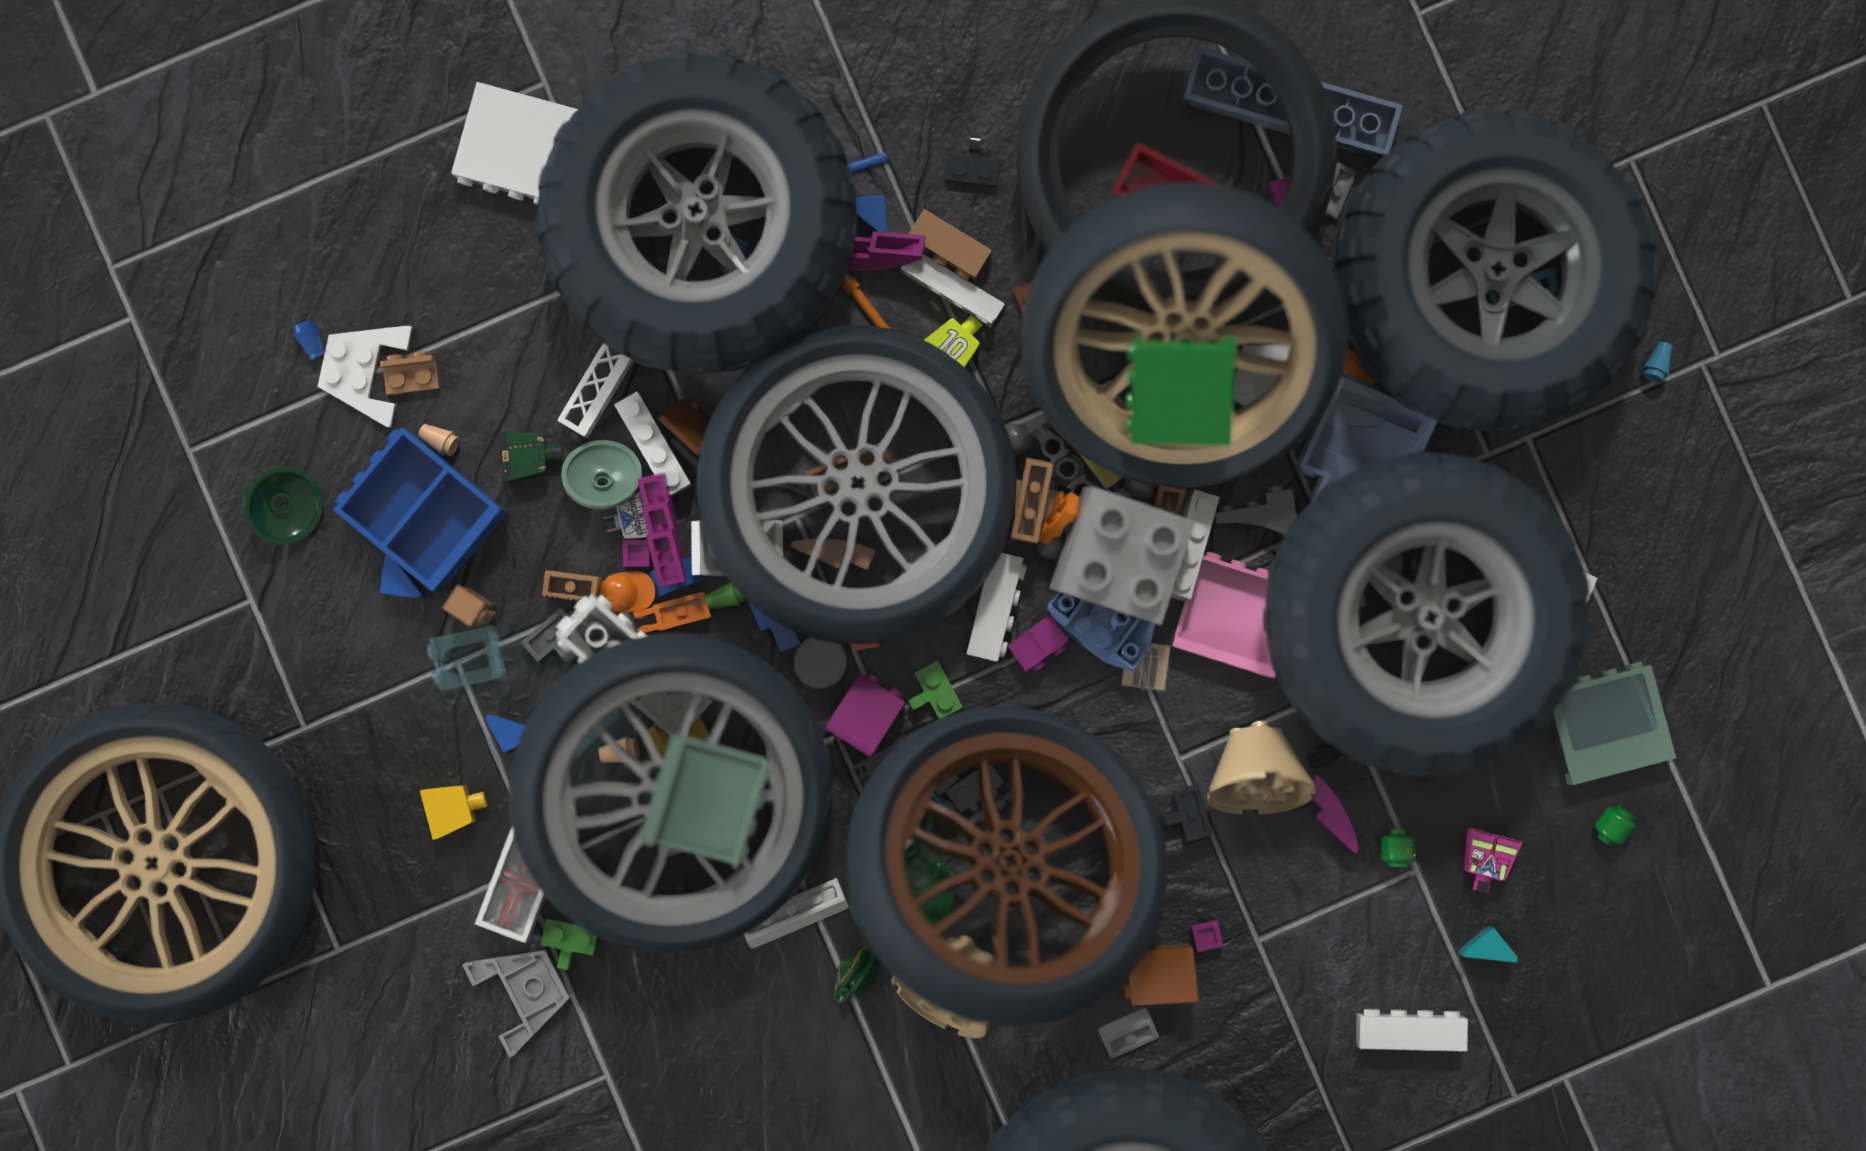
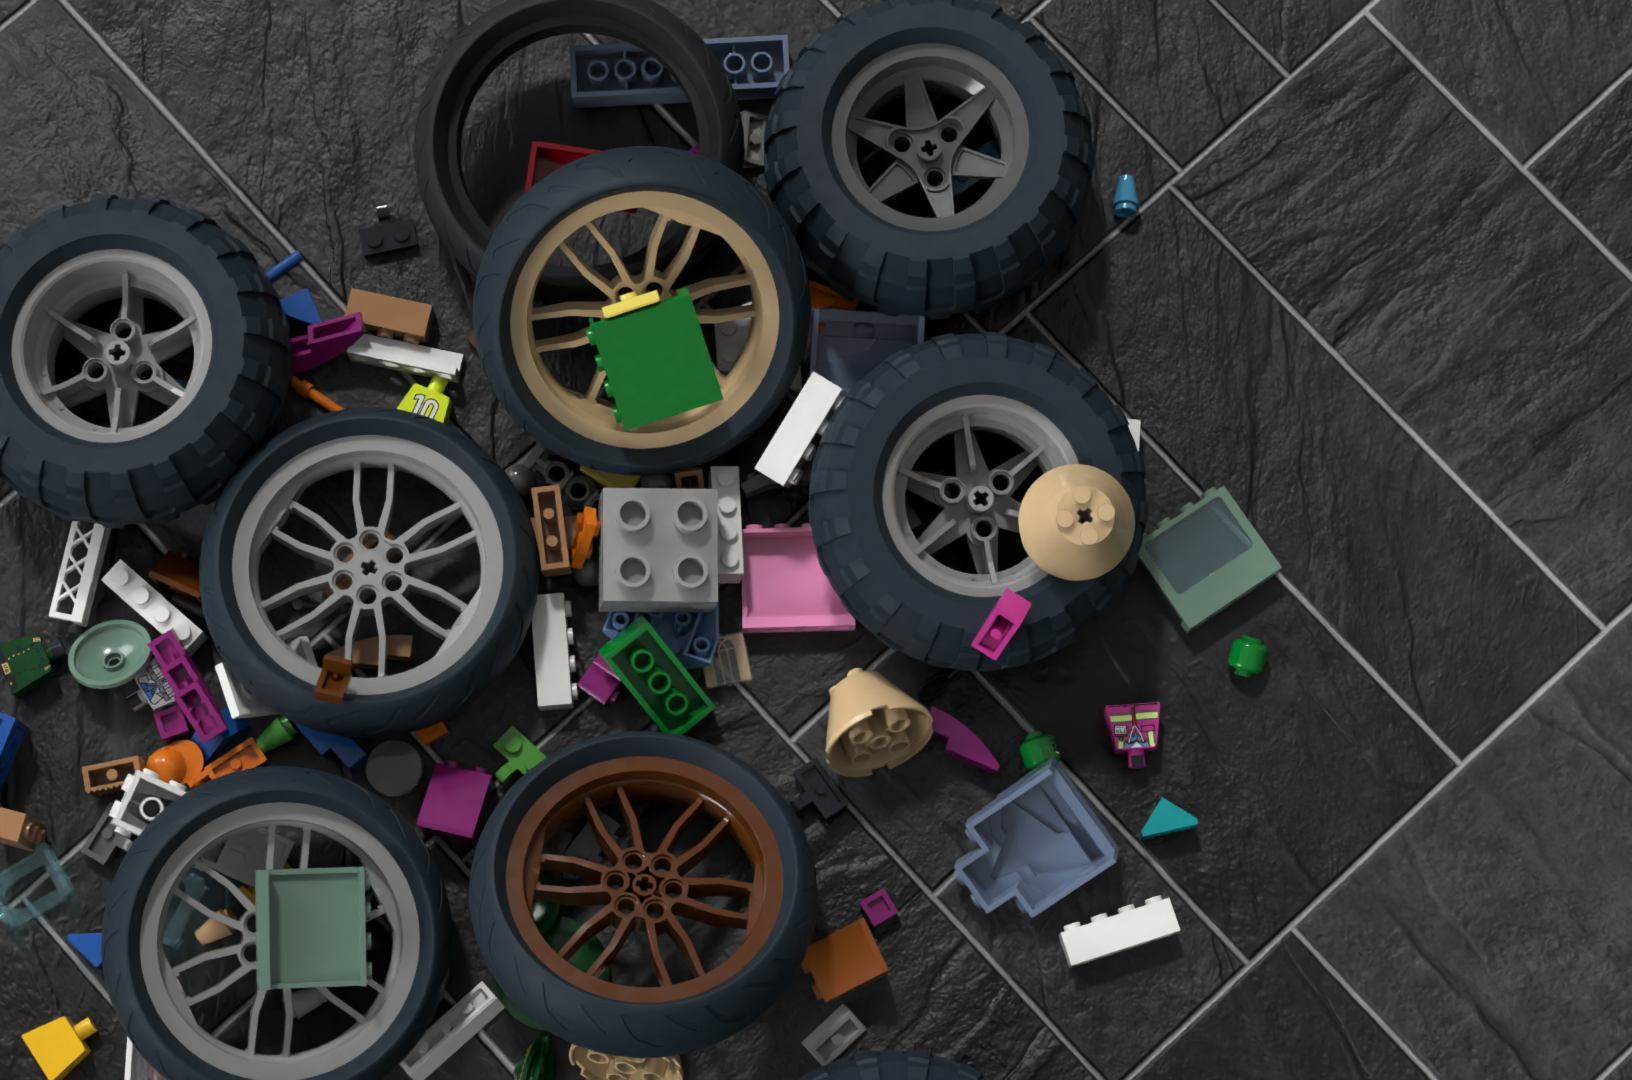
camera: 20 degrees left, 10 degrees down
(795, 584) = (333, 679): none -> reddish brown bracket
(1080, 667) = (656, 678): none -> green brick
(1178, 335) = (630, 302): none -> light yellow plate
(1289, 488) = (800, 431): none -> white brick
(1366, 930) = (1034, 843): none -> sand blue panel
(1411, 746) = (1001, 624): none -> dark pink slope
(1512, 676) = (1052, 528): none -> tan cone

